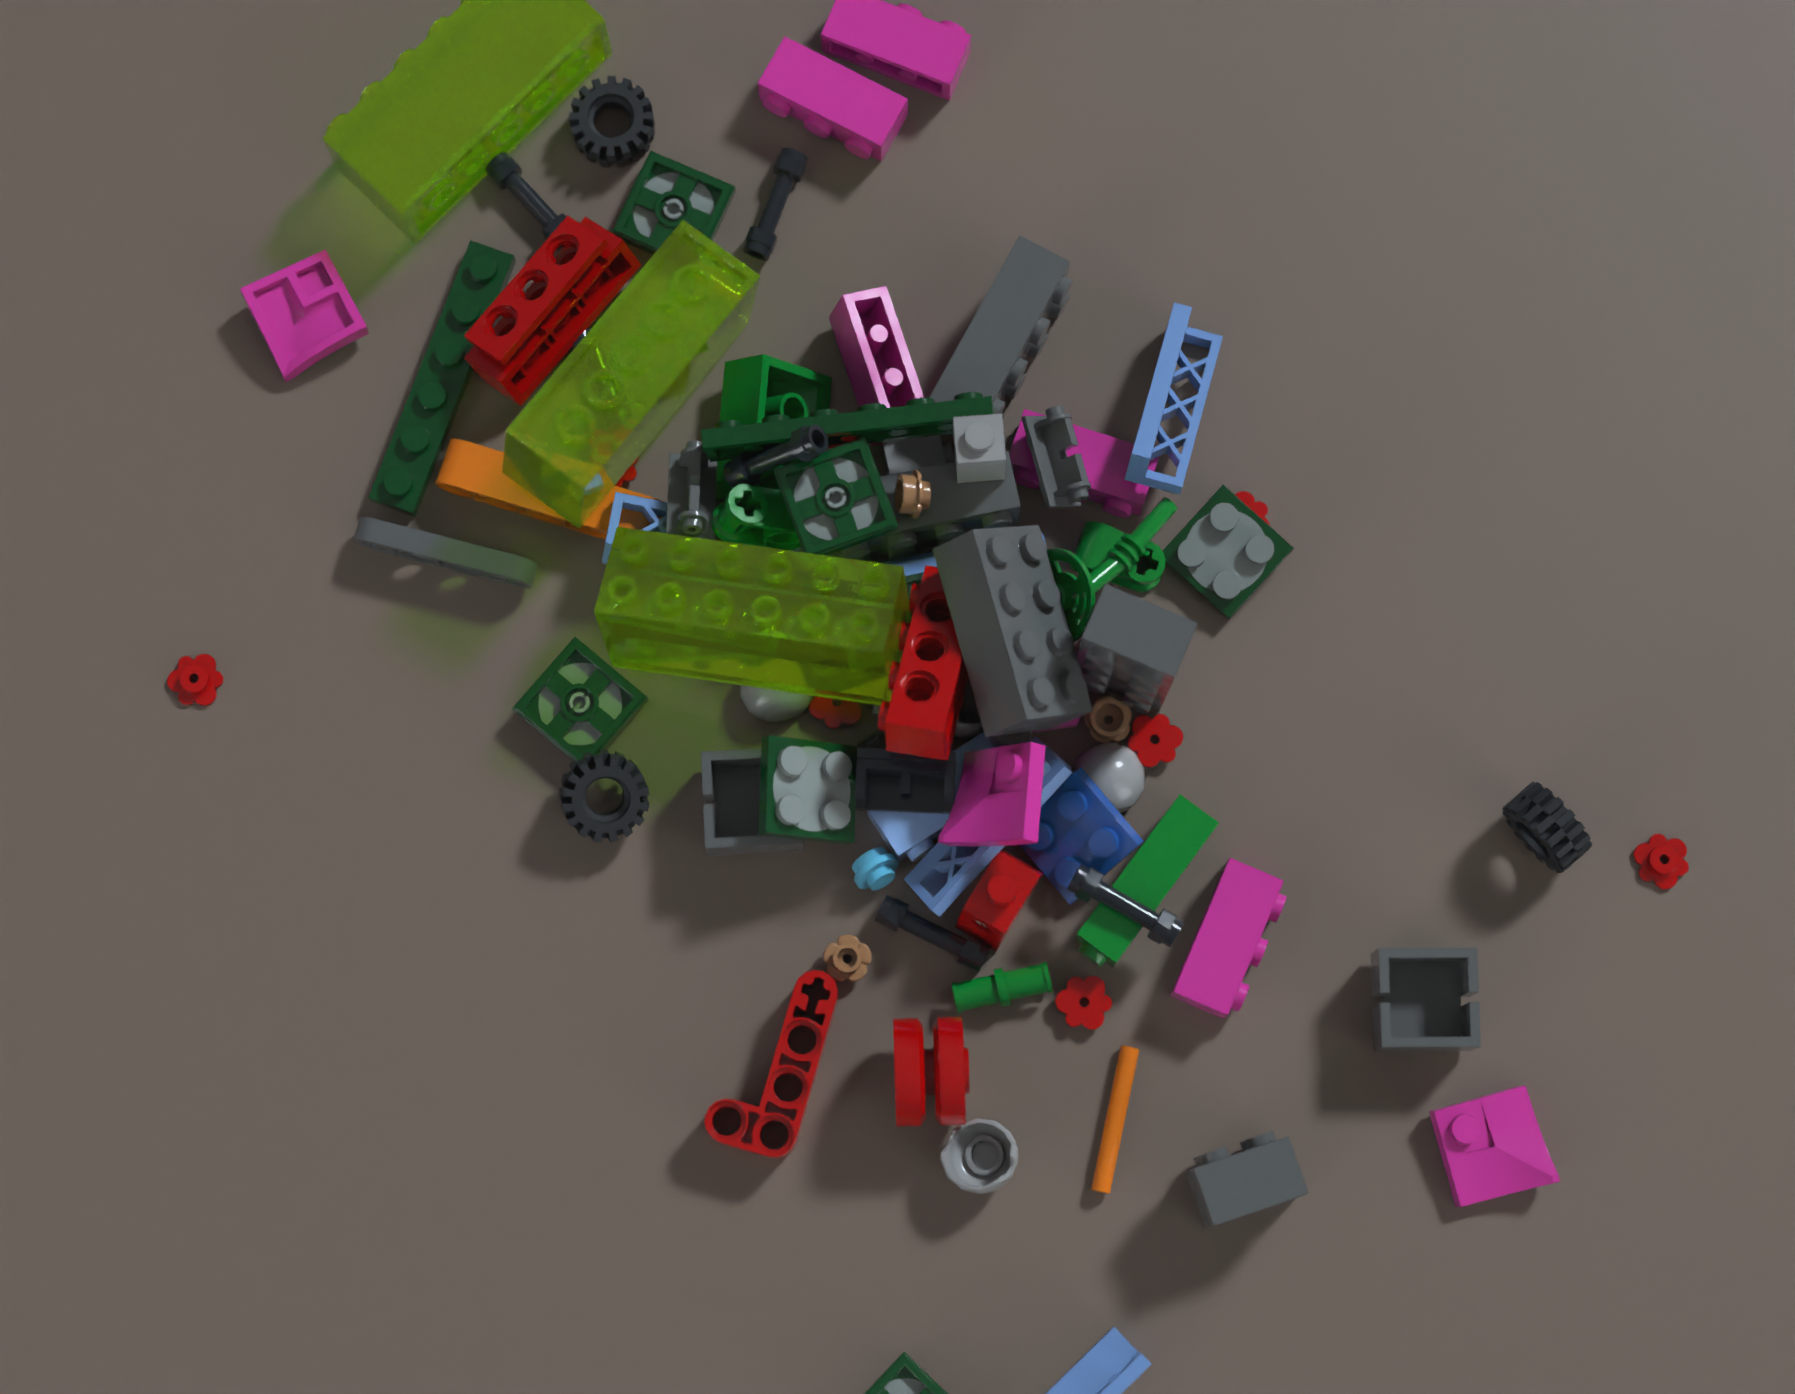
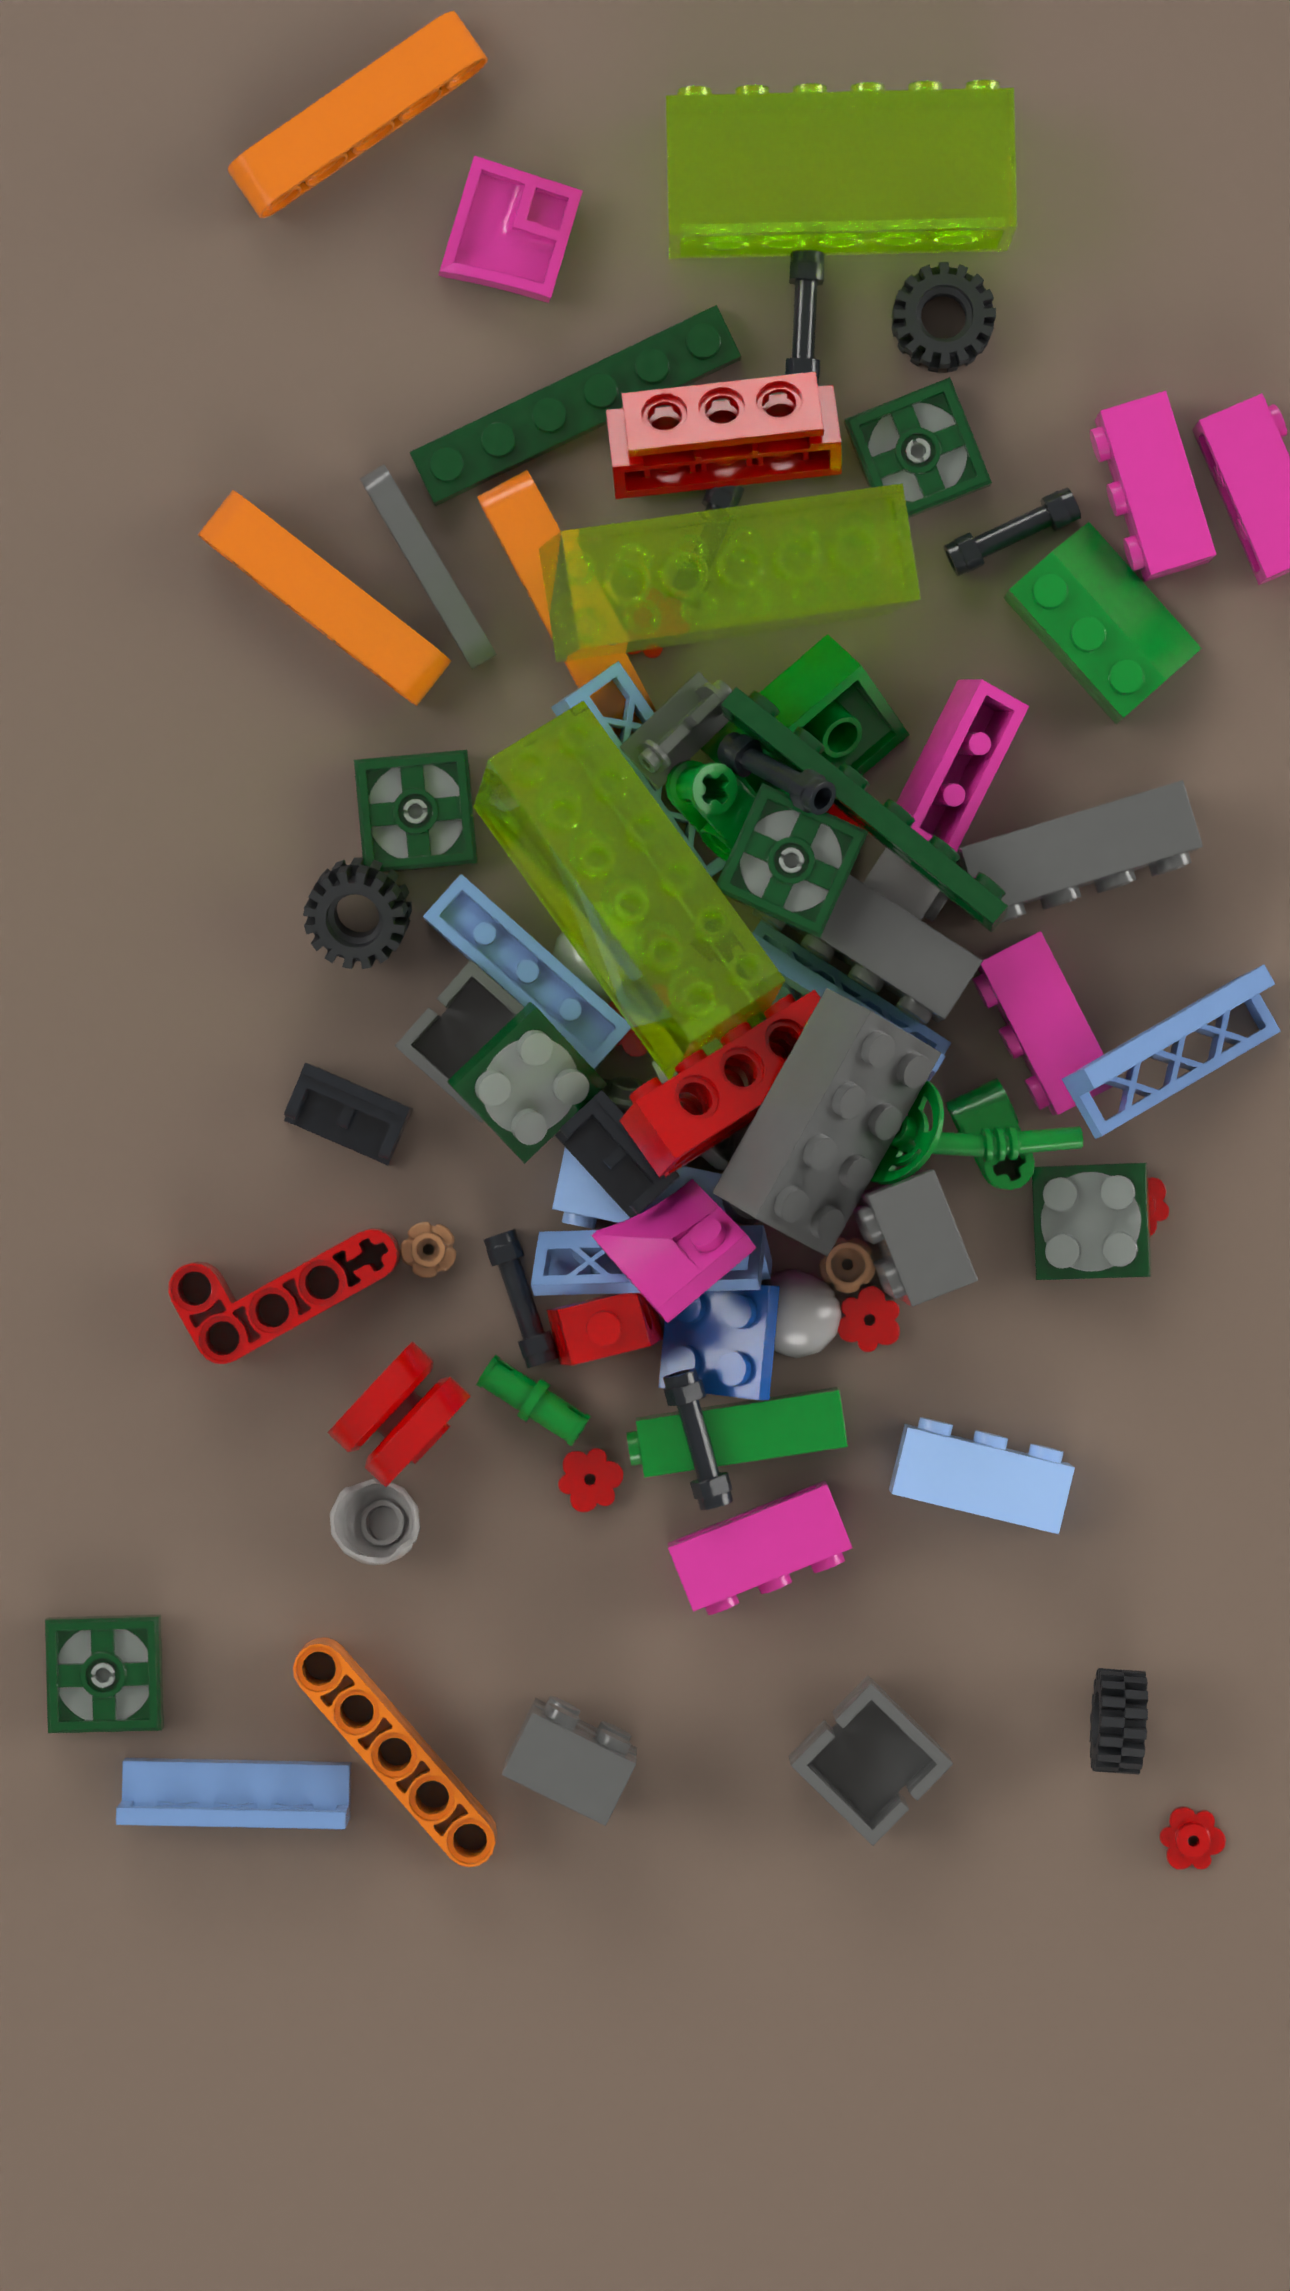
camera: 45 degrees right, 10 degrees up
(145, 333) = (357, 114): none -> orange beam
(204, 689) = (112, 485): red plant -> none
(400, 630) = (324, 597): none -> orange beam
(681, 732) = (526, 969): none -> medium blue fence
(716, 924) = (347, 1113): none -> black hinge
(875, 869) = (525, 1198): medium azure plate -> none
(879, 207) = (1101, 622): none -> green slope
(912, 494) = (860, 920): medium nougat plate -> none
(979, 448) = (956, 938): light grey brick -> none
(1060, 477) = (1007, 1024): dark grey hinge -> none
(1115, 1119) = (519, 1599): orange bar -> none
(1158, 1282) = (400, 1779): none -> orange beam
(1315, 764) = (982, 1475): none -> light blue brick
(1492, 1146) = (807, 1929): dark pink plate -> none

